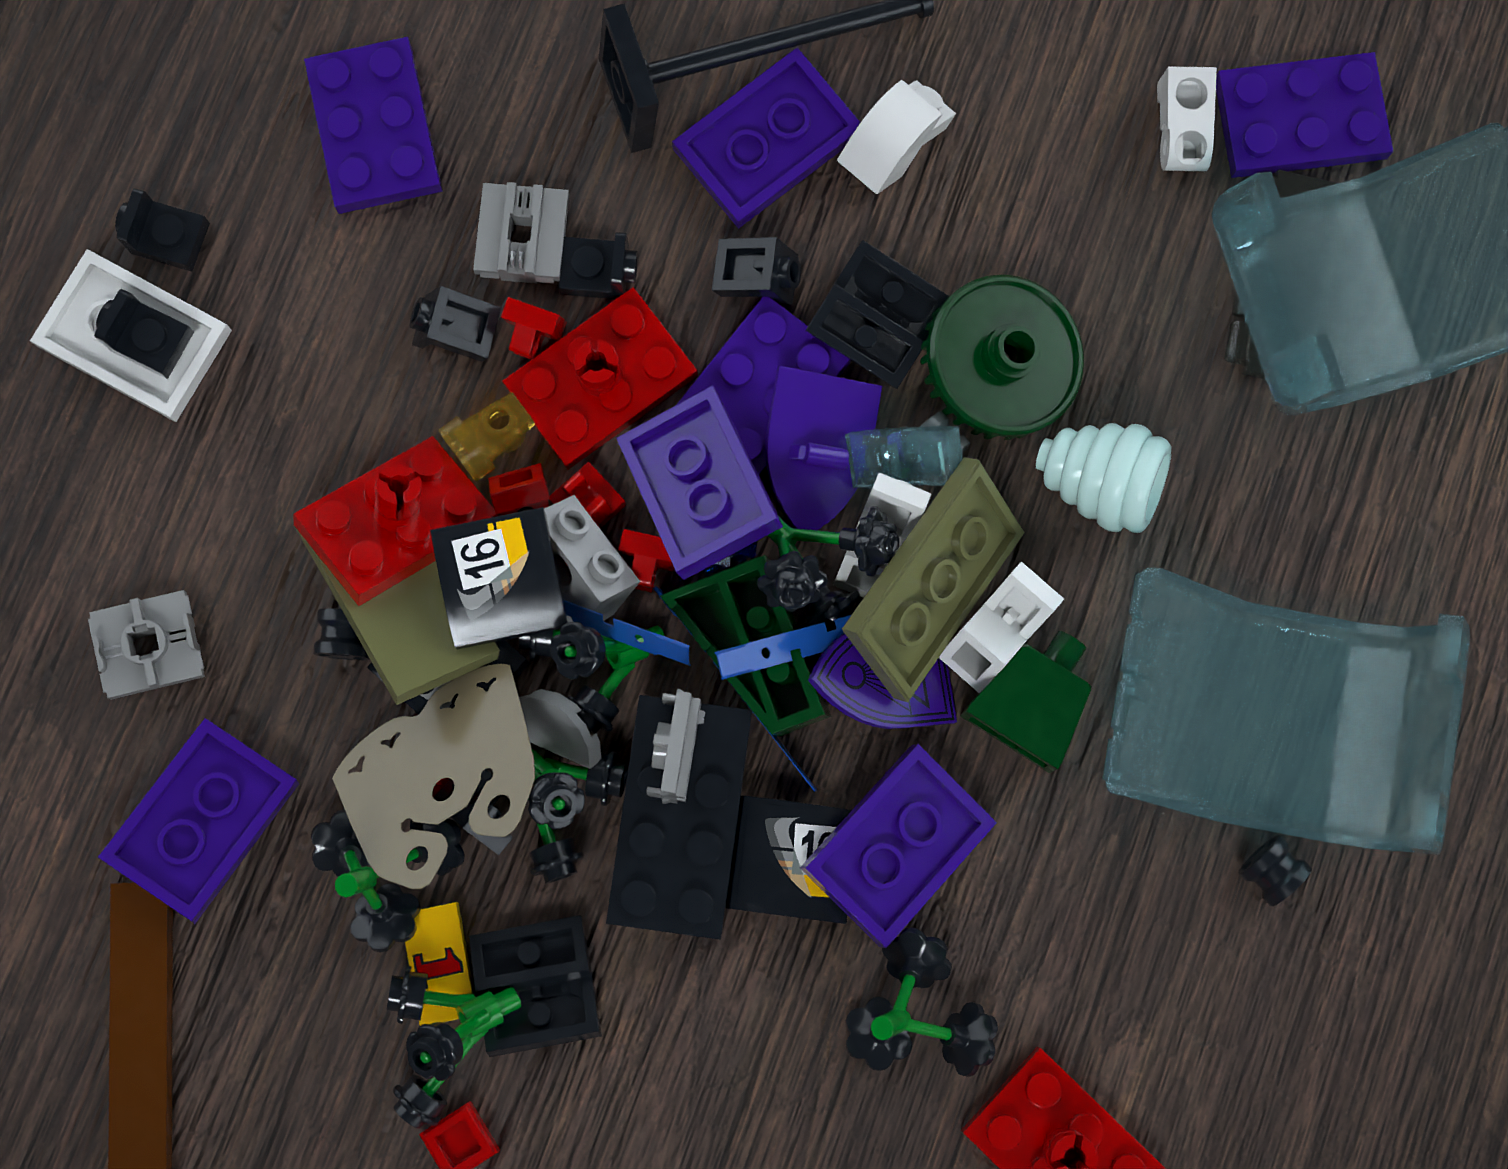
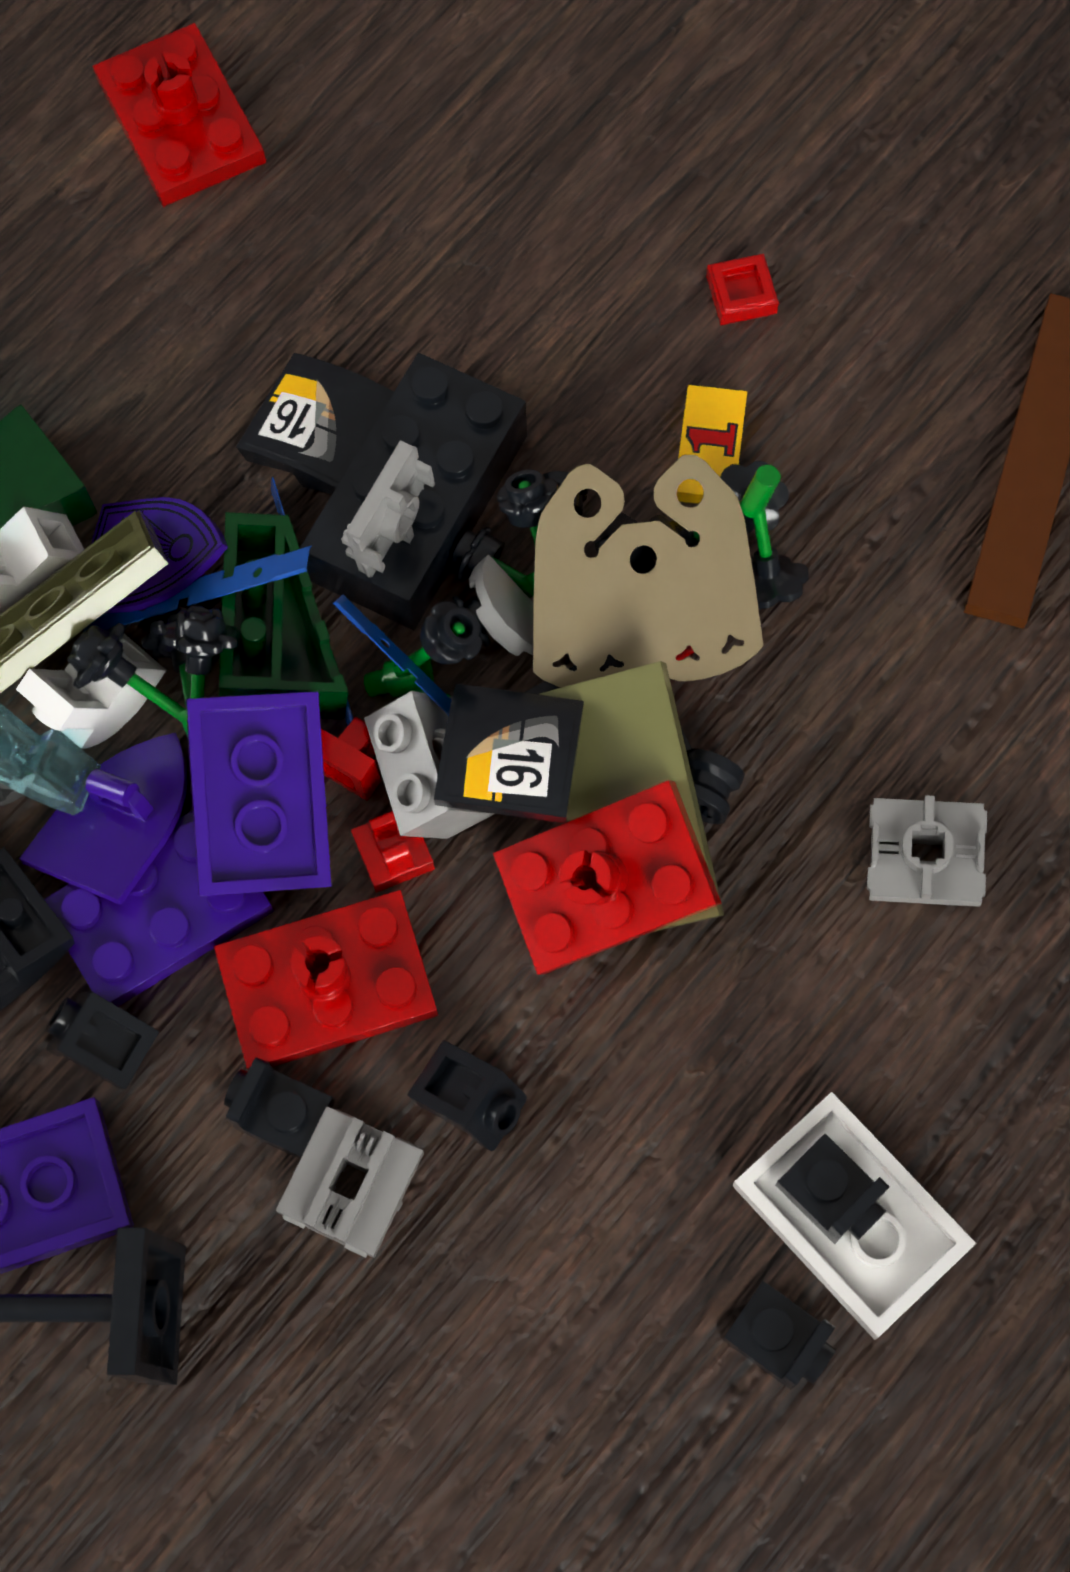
camera: 155 degrees left, 10 degrees down
(199, 820) = (915, 645): dark purple plate -> none
(373, 125) = (481, 1392): dark purple plate -> none
(437, 1046) = (734, 320): black plant -> none
(478, 443) = (489, 944): clear yellow plate -> none
(519, 490) = (460, 876): red tile -> none
(531, 327) = (379, 1057): red tile -> none
(552, 977) = (620, 395): black slope -> none
(882, 1031) = (302, 254): black plant -> none
(898, 845) = (209, 396): dark purple plate -> none

